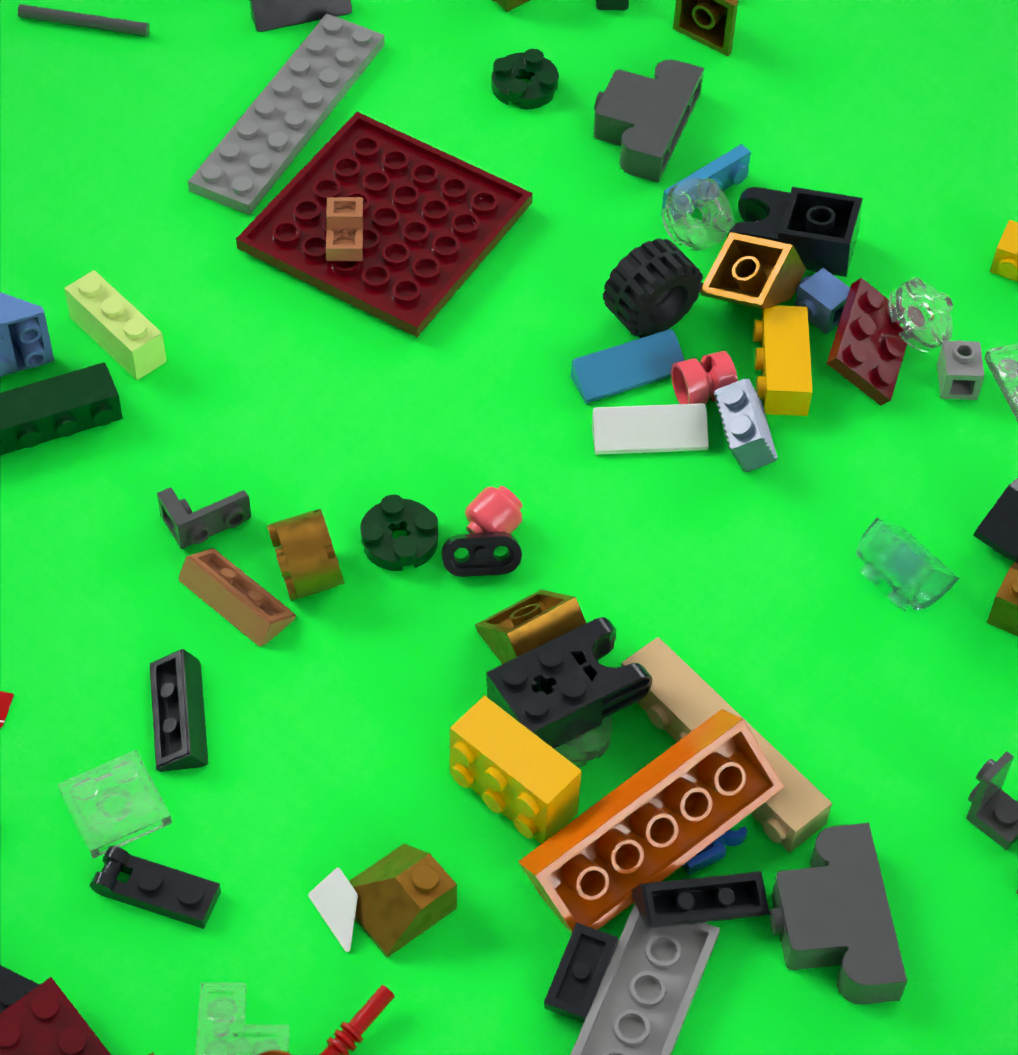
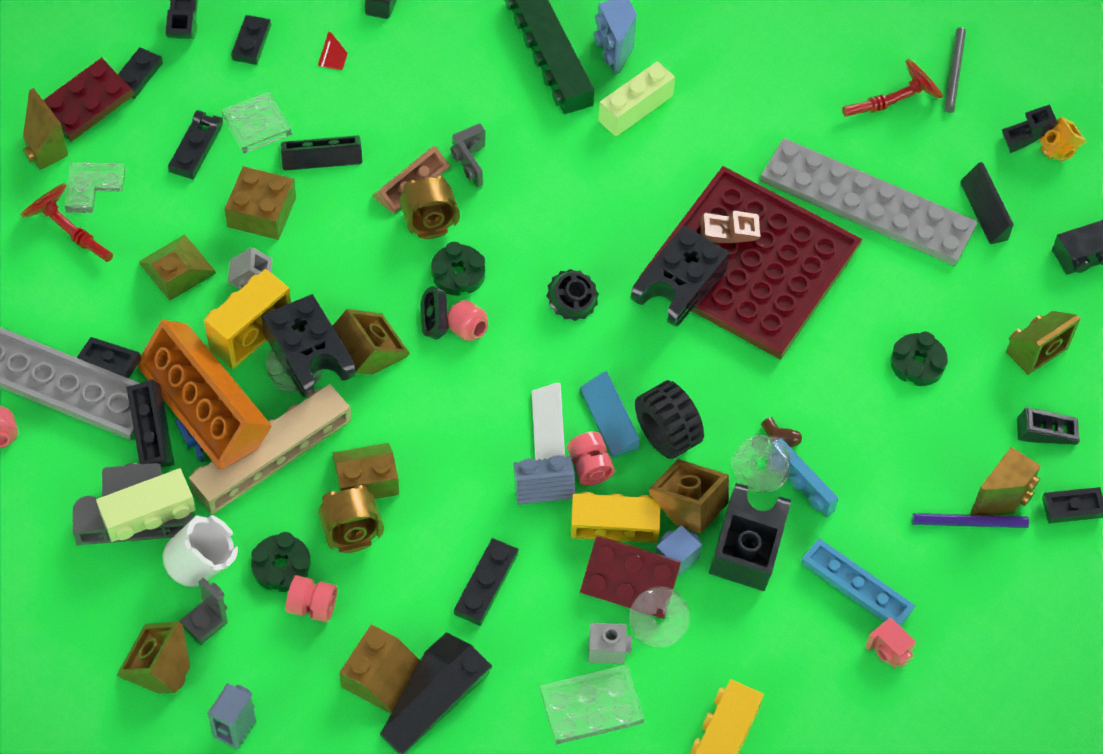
camera: 90 degrees right, 5 degrees up
(112, 43) = (919, 83): none -> red dish
(286, 778) = (260, 202): none -> pearl gold brick
(337, 905) = (173, 235): white sticker -> none
(421, 782) = (247, 265): none -> light grey brick
(431, 270) = (682, 274): none -> black brick
(445, 399) = (572, 294): none -> black piece
(645, 208) = (790, 436): none -> reddish brown arm
(647, 115) = (878, 441): dark grey brick -> none
(740, 59) = (970, 520): none -> dark purple bar
(744, 627) = (370, 467): none -> pearl gold slope
(835, 632) = (350, 519): none -> pearl gold brick
(840, 145) = (857, 583): none -> dark azure plate
(864, 871) = (146, 505): none -> yellowish green brick
(887, 497) = (486, 581): none -> black plate
(901, 707) = (276, 547): none -> dark green plate
(904, 565) = (413, 577): clear light blue brick -> none
(913, 120) = (892, 643): none -> coral brick
(922, 806) = (199, 551): none -> white cylinder
(955, 678) = (311, 598): none -> coral wheel

